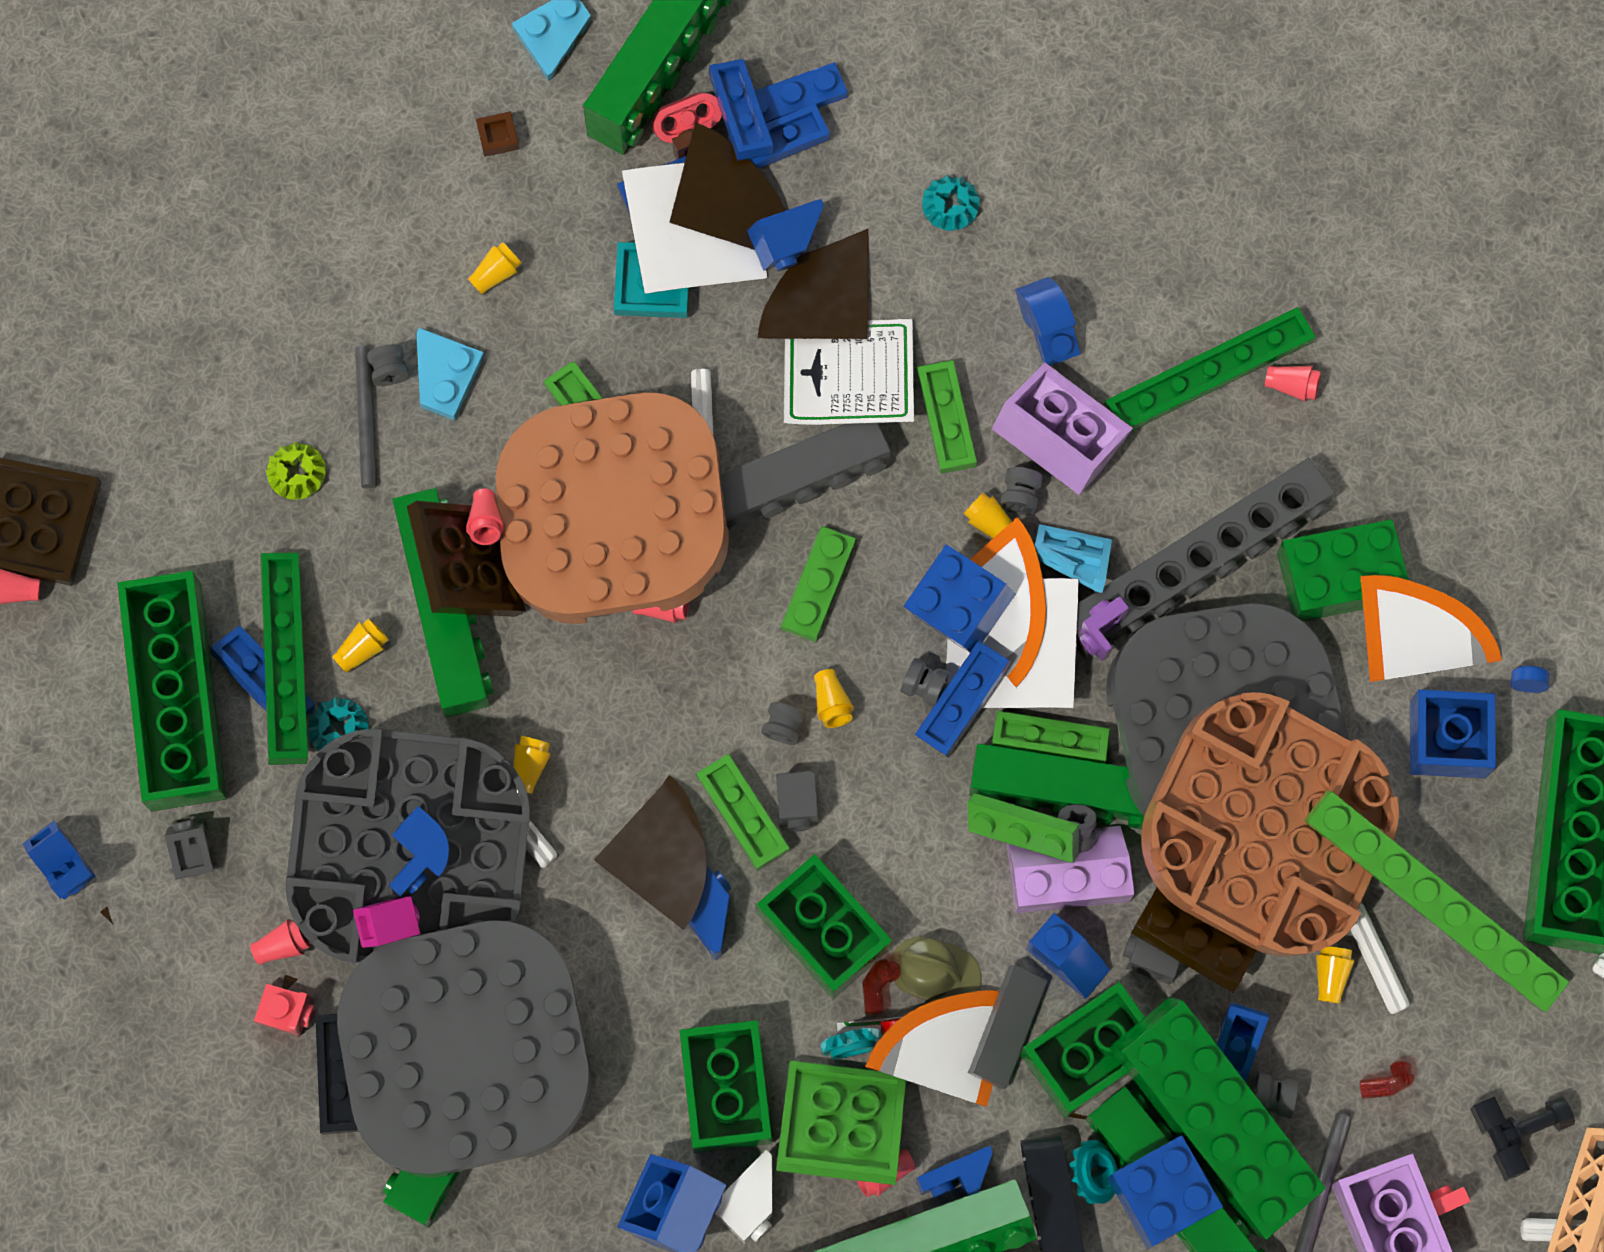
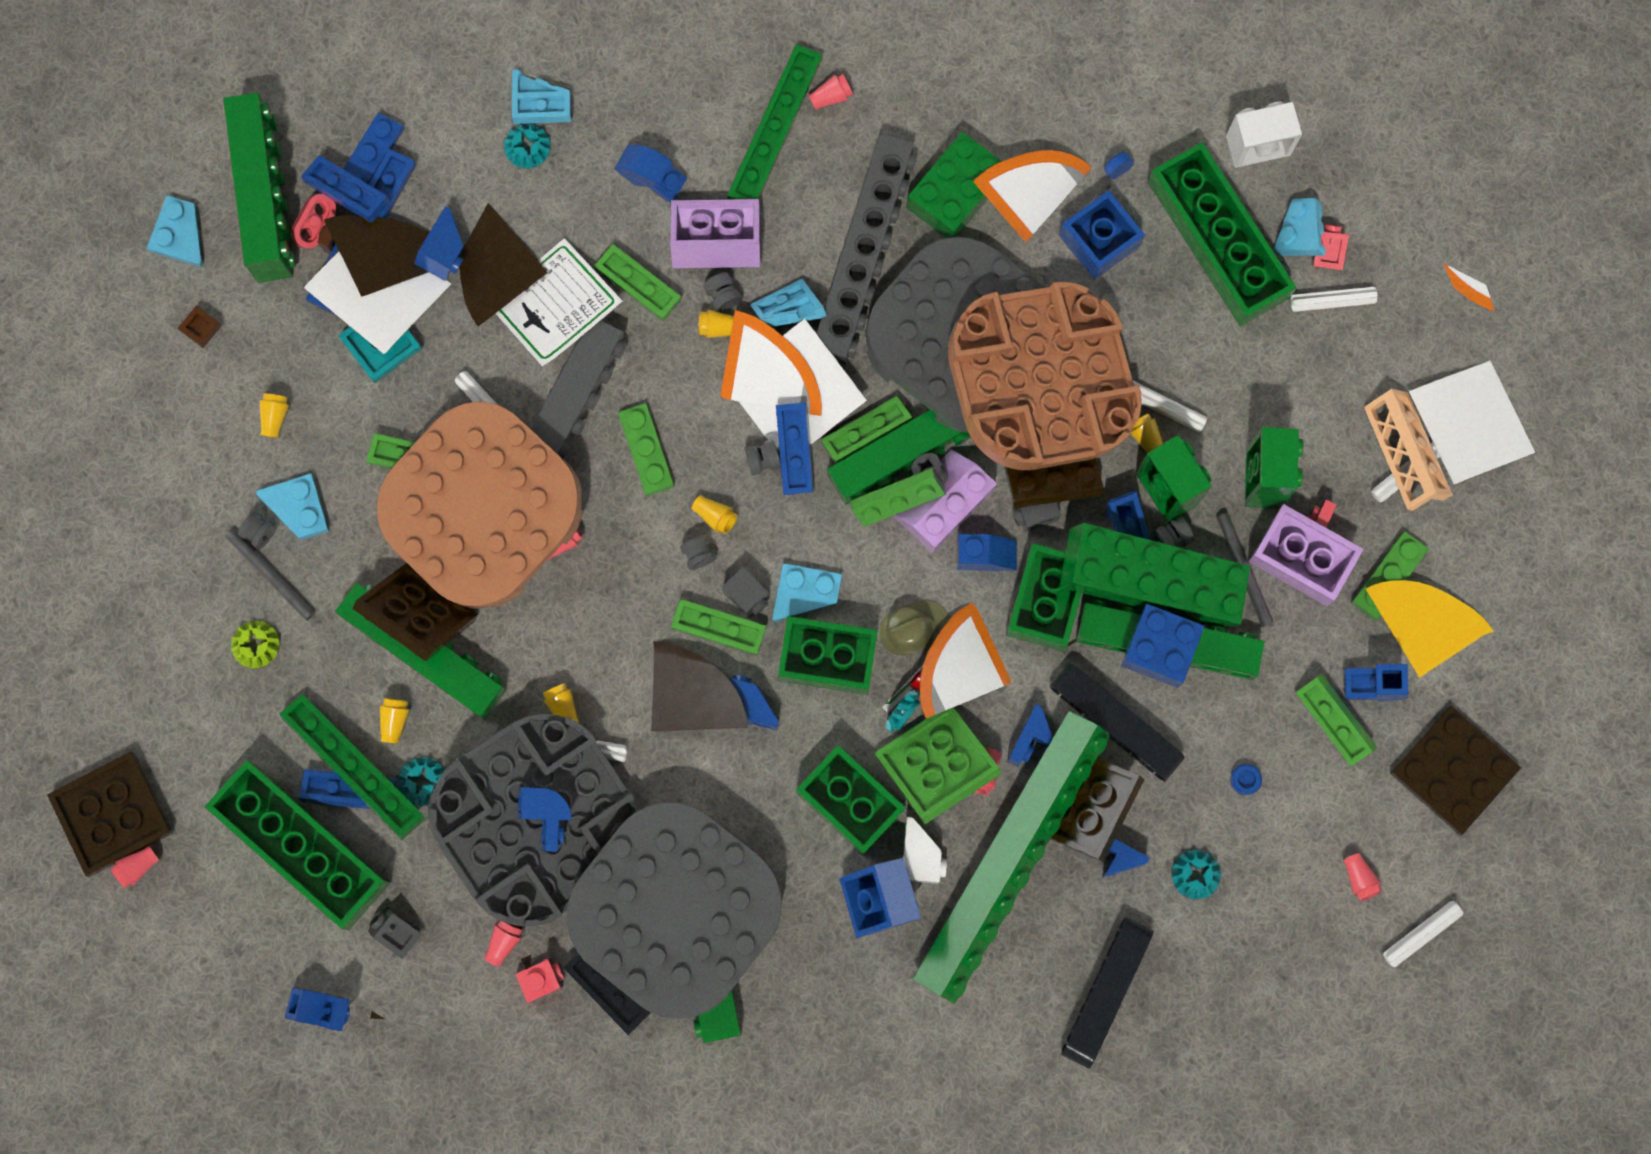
camera: 40 degrees left, 5 degrees up
(387, 921) = (561, 874): dark pink brick -> none
(484, 518) = (407, 578): coral cone -> none
(856, 846) = (804, 591): none -> medium azure wing
(875, 981) = (885, 665): clear red arm -> none
(959, 599) = (742, 389): blue brick -> none
(997, 169) = (538, 101): none -> medium azure wing
(1007, 1026) = (985, 625): dark grey tile -> none
(1088, 1156) = (1115, 676): teal gear -> none
(1103, 618) = (840, 330): medium lavender bracket -> none
(1319, 1034) = (1174, 478): none -> green brick
(1390, 1085) = (1234, 475): clear red arm -> none
(1431, 1108) = (1273, 467): none -> green brick
(1436, 901) = (1173, 343): bright green plate -> none
(1509, 1135) = (1325, 447): black bar -> none

